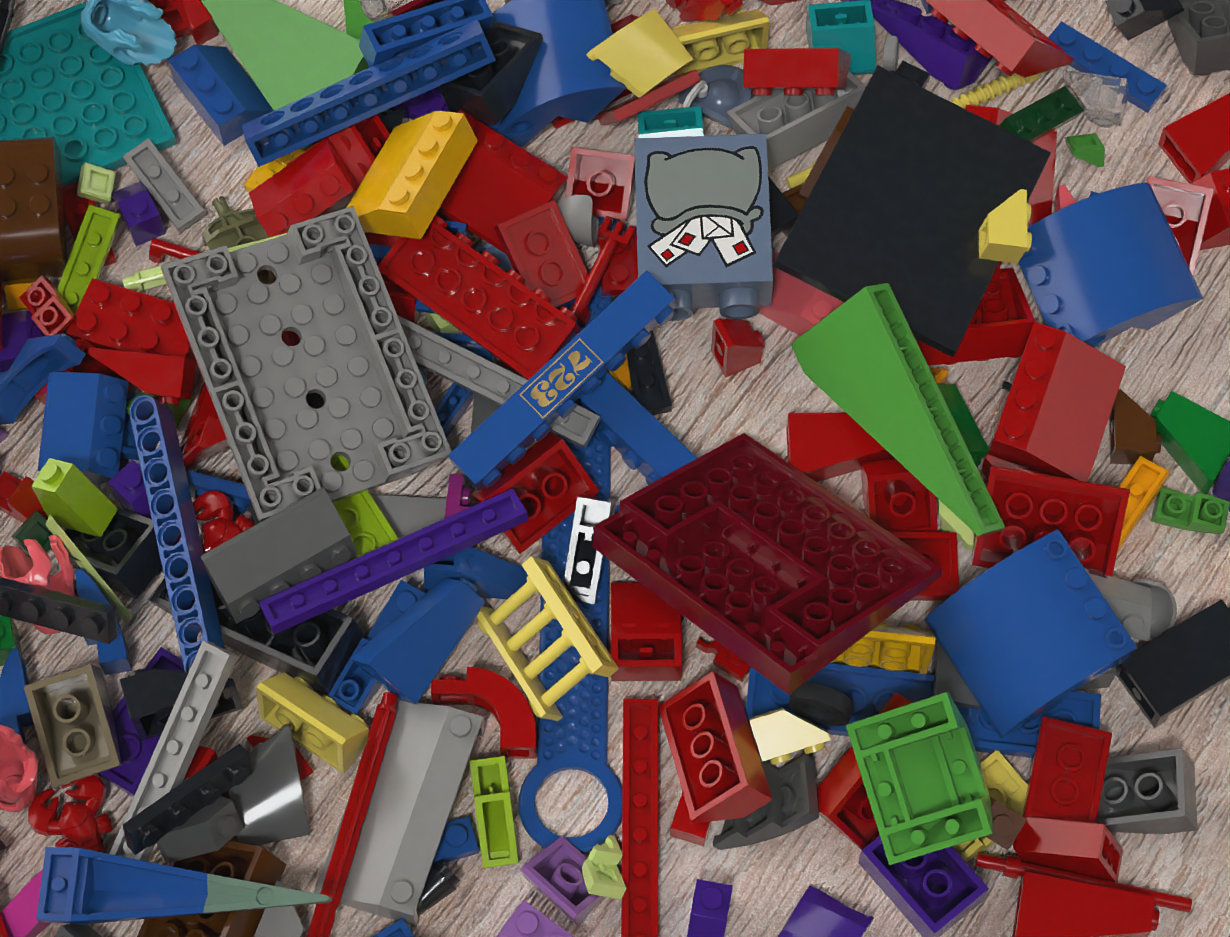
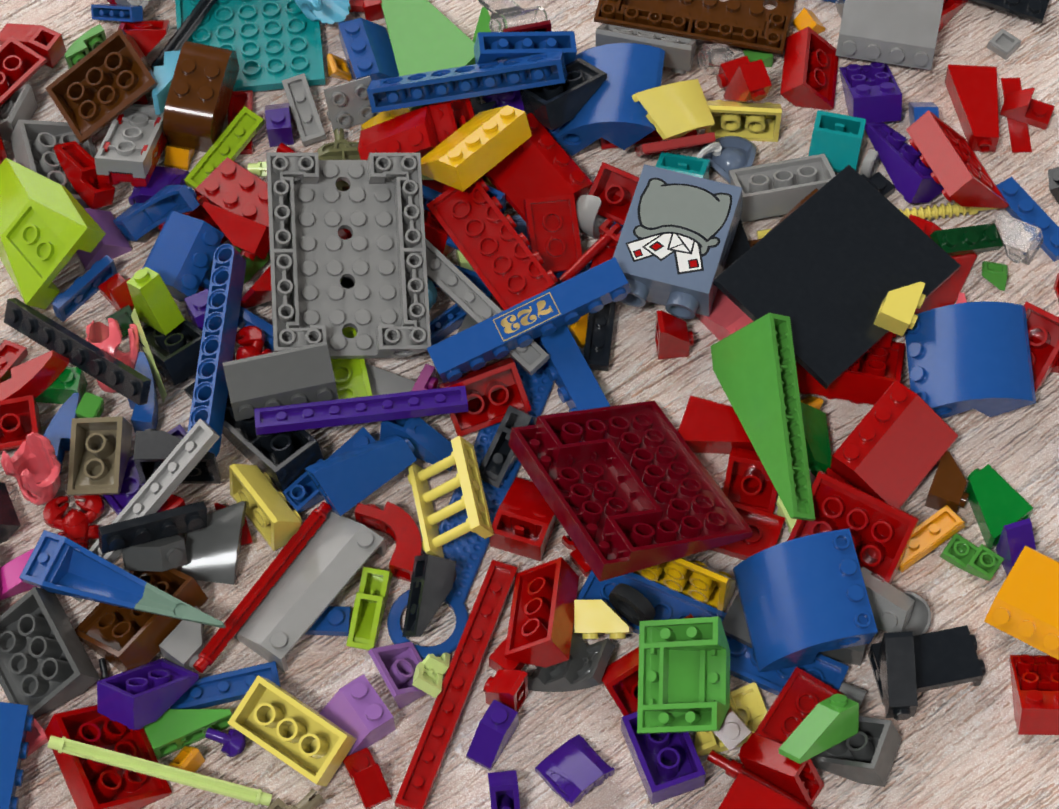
camera: 20 degrees right, 5 degrees down
(37, 662) = (90, 406): none -> bright green slope
(47, 307) = (189, 167): red slope -> none
(96, 183) = (256, 94): yellowish green tile -> none
(185, 117) = (338, 68): none -> light orange slope
(222, 161) = (349, 103): none -> light grey hinge
(439, 885) = (308, 647): black cone -> none
(562, 766) = (429, 587): none -> black slope
(704, 858) = (508, 688): none -> red slope
(795, 70) = (789, 153): red slope -> none
(1108, 787) = (823, 728): none -> bright green slope
(1119, 727) = (853, 693): none -> light grey hinge
(1171, 690) = (898, 675): none -> black slope

